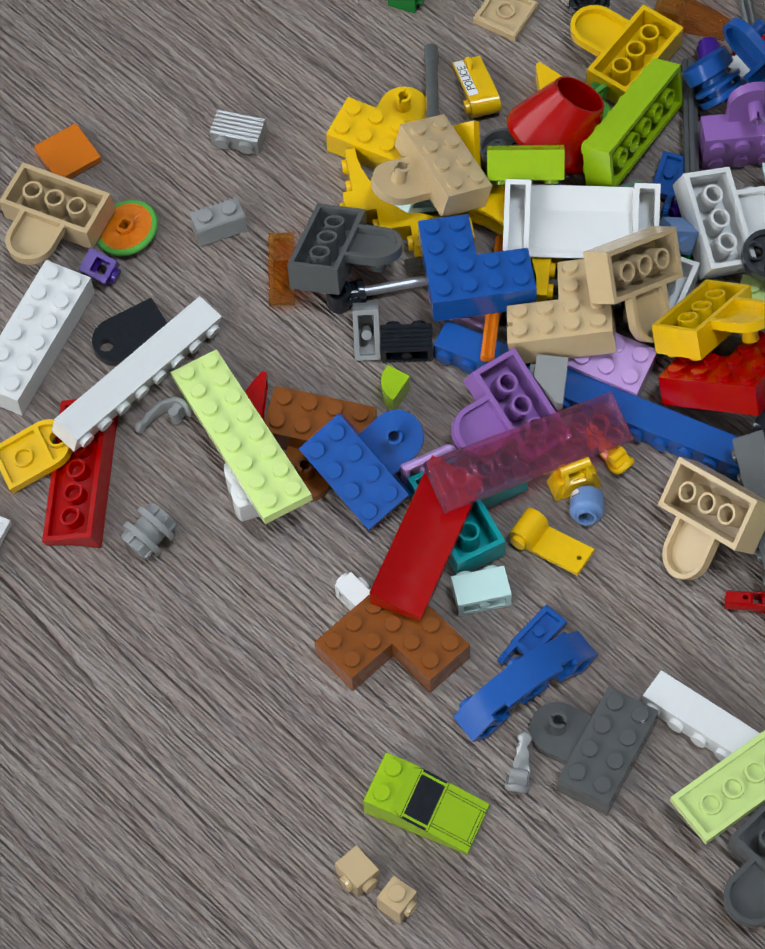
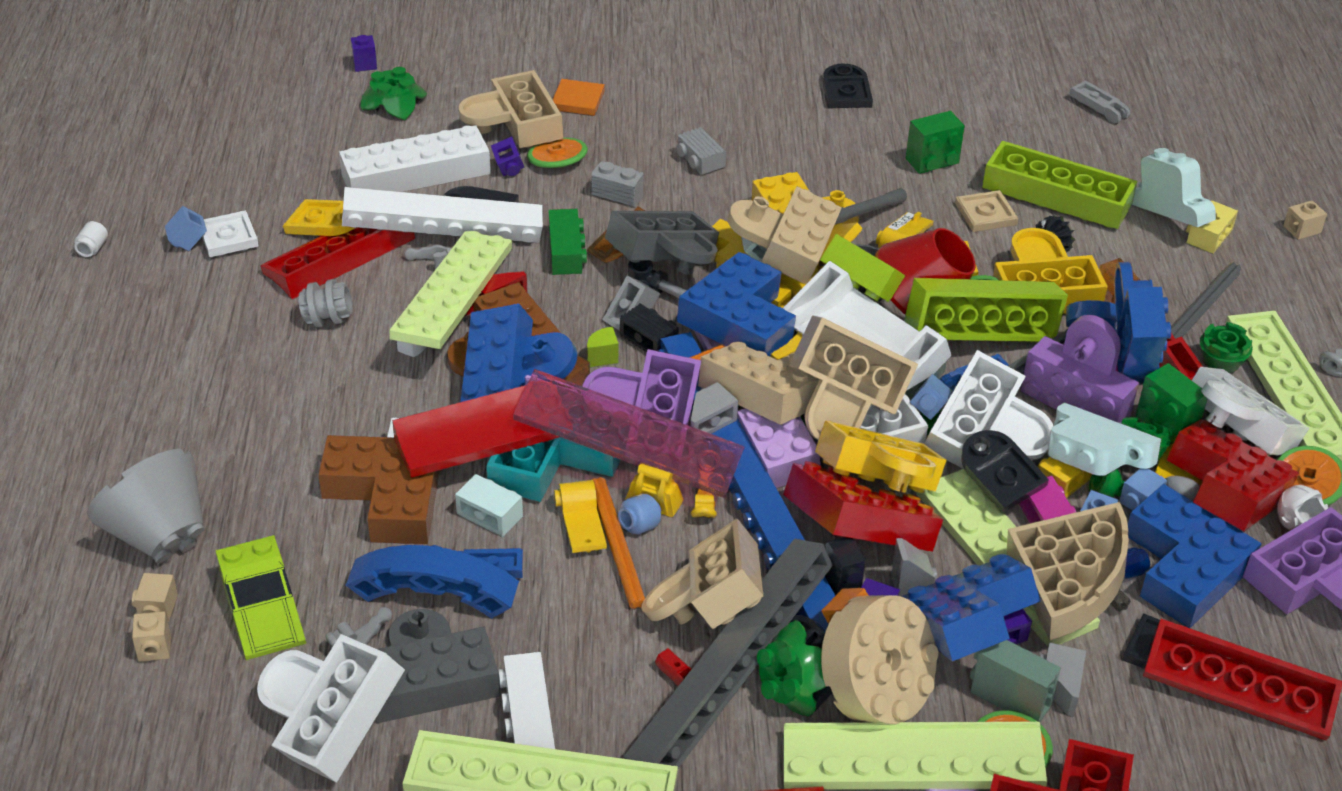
camera: 40 degrees right, 20 degrees down
(246, 312) = (566, 241): none -> green brick
(283, 810) = (153, 505): none -> light grey cone
(587, 834) = (327, 701): none -> white brick
(597, 541) = (618, 544): none -> orange axle

